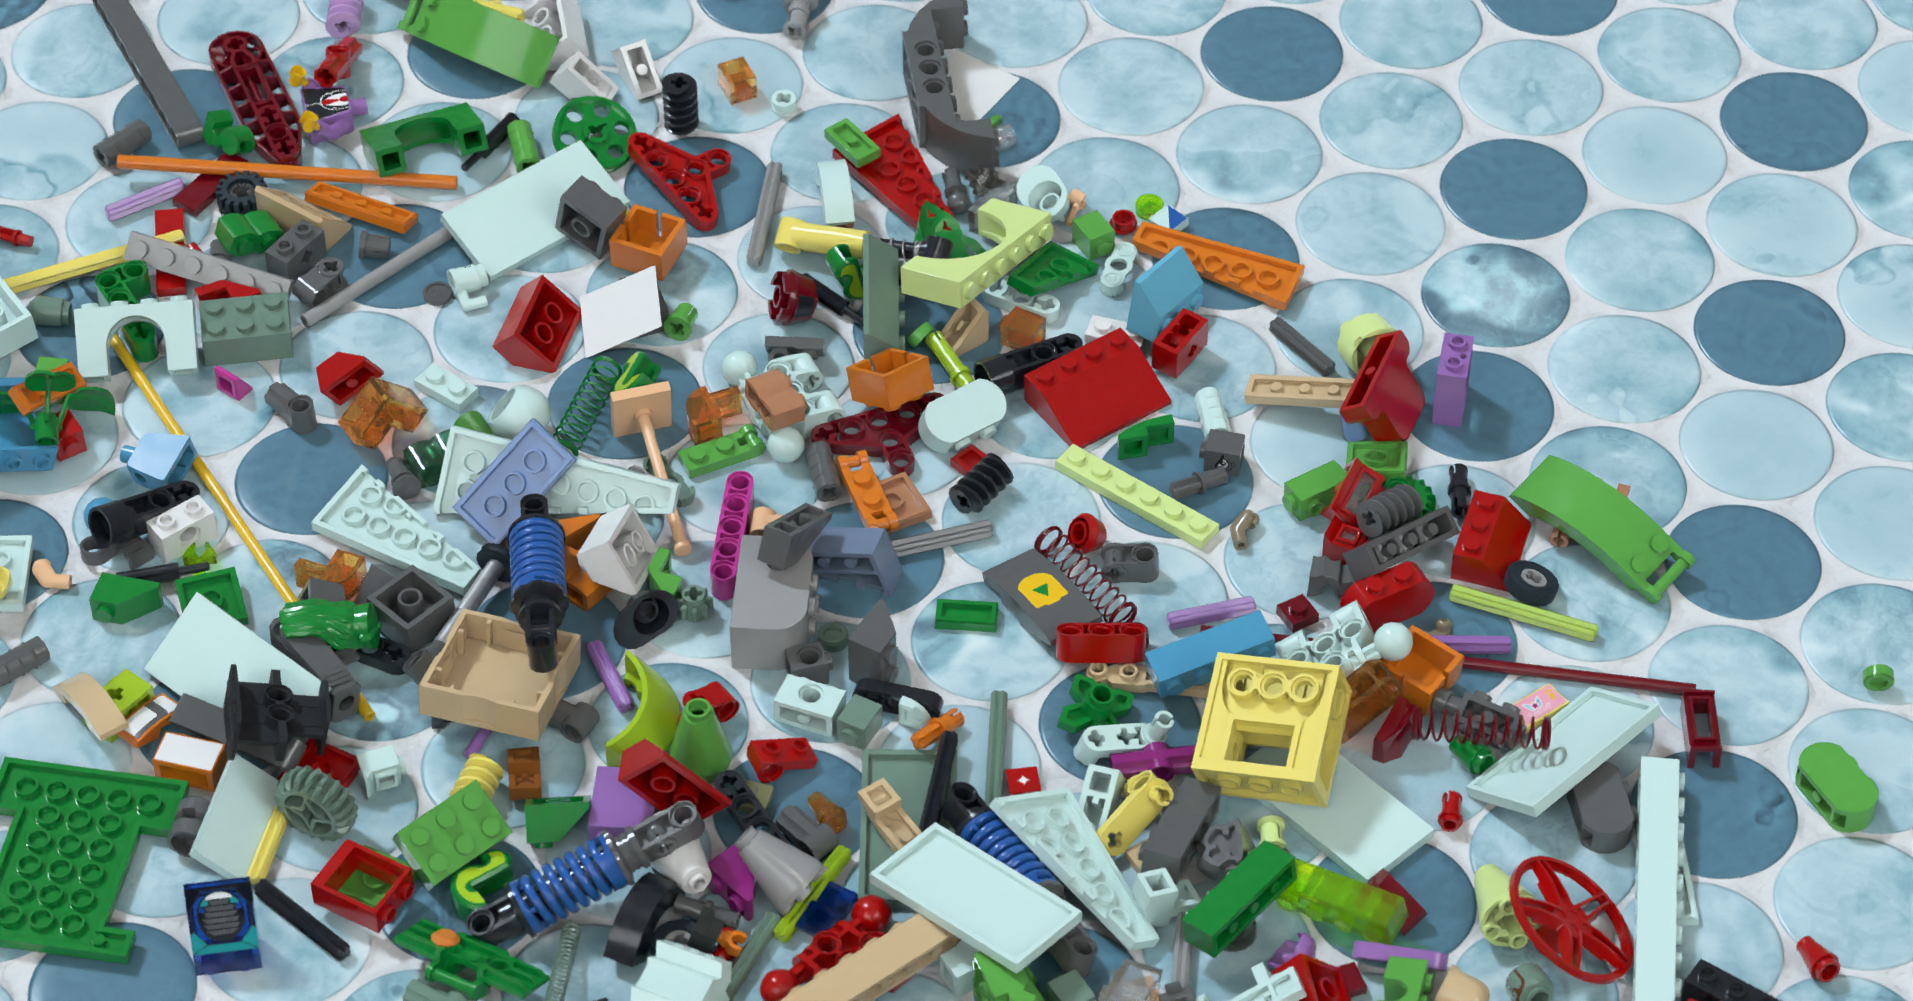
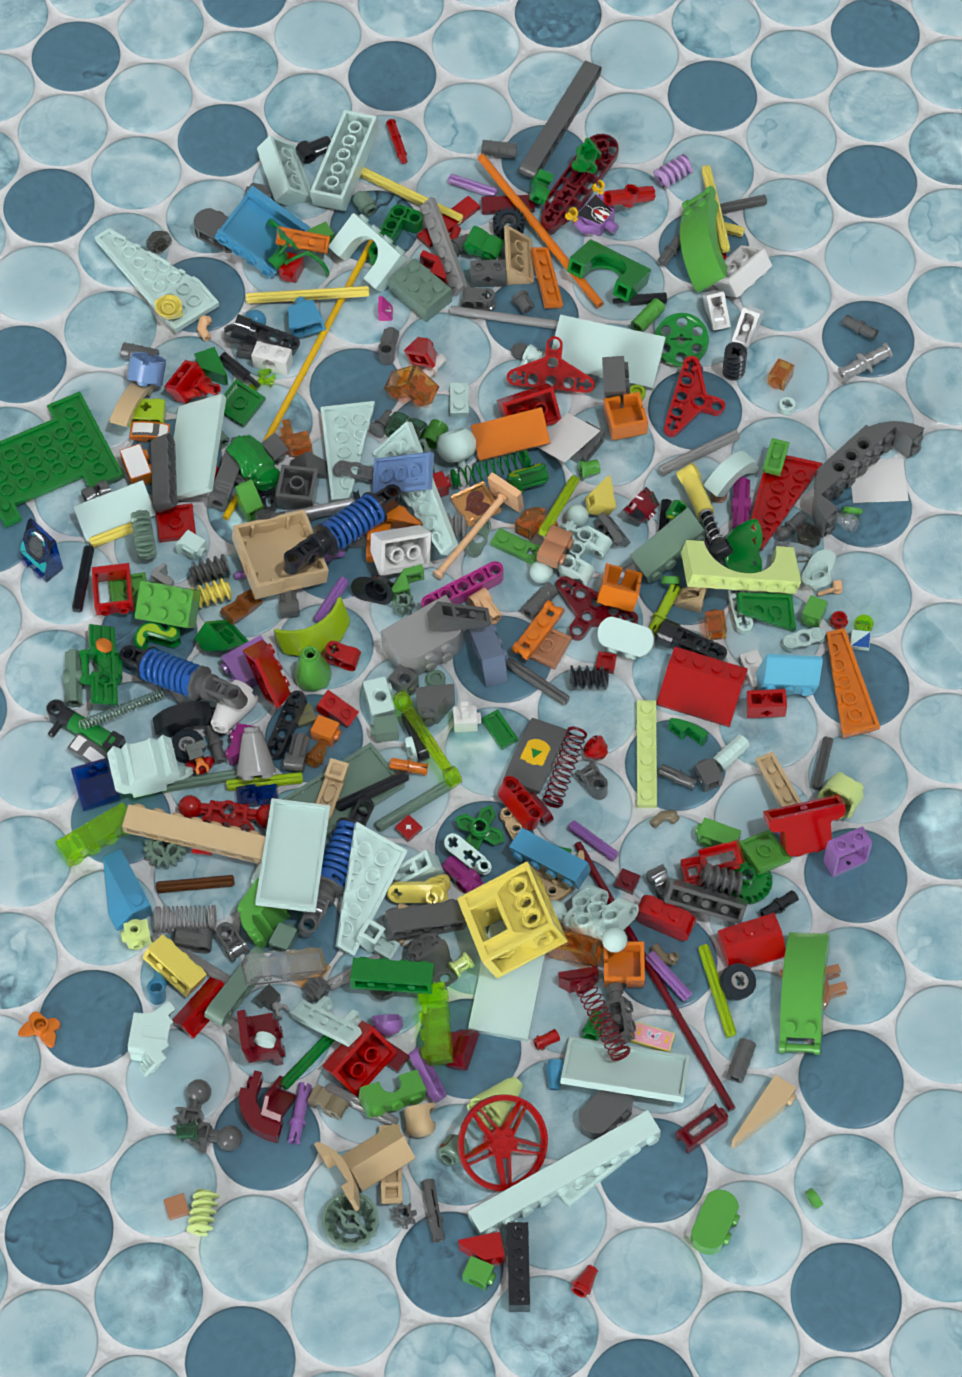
camera: 55 degrees right, 15 degrees up
(59, 658) = (146, 369): none -> medium blue brick
(128, 436) = (313, 294): none -> light yellow axle
(133, 626) = (190, 382): none -> red brick
(243, 59) = (586, 157): none -> green piece
(272, 714) = (160, 470): black piece -> none
(379, 668) = (248, 500): none -> bright green slope
(388, 828) = (160, 575): none -> light grey bracket
(431, 546) = (344, 468): none -> dark grey piece
(437, 769) = (209, 569): none -> dark grey piece
(452, 77) = (670, 251): none -> dark grey axle
(498, 281) = (560, 372): none -> red beam
(561, 355) = (510, 434): none -> orange tile
(617, 448) = (474, 502): none -> clear orange tile
(713, 371) = (559, 505): none -> lime axle
(739, 330) = (601, 498): none -> light yellow slope
(801, 781) = (326, 729): none -> orange brick
(882, 216) = (741, 501): none -> magenta piece
(922, 634) = (466, 718): none -> white brick
(922, 680) = (404, 704): none -> clear neon green piece
(1505, 827) = (554, 1072): none -> dark azure cone
(1639, 641) = (741, 1060): none -> dark grey axle
(1719, 644) = (770, 1104): none -> tan slope

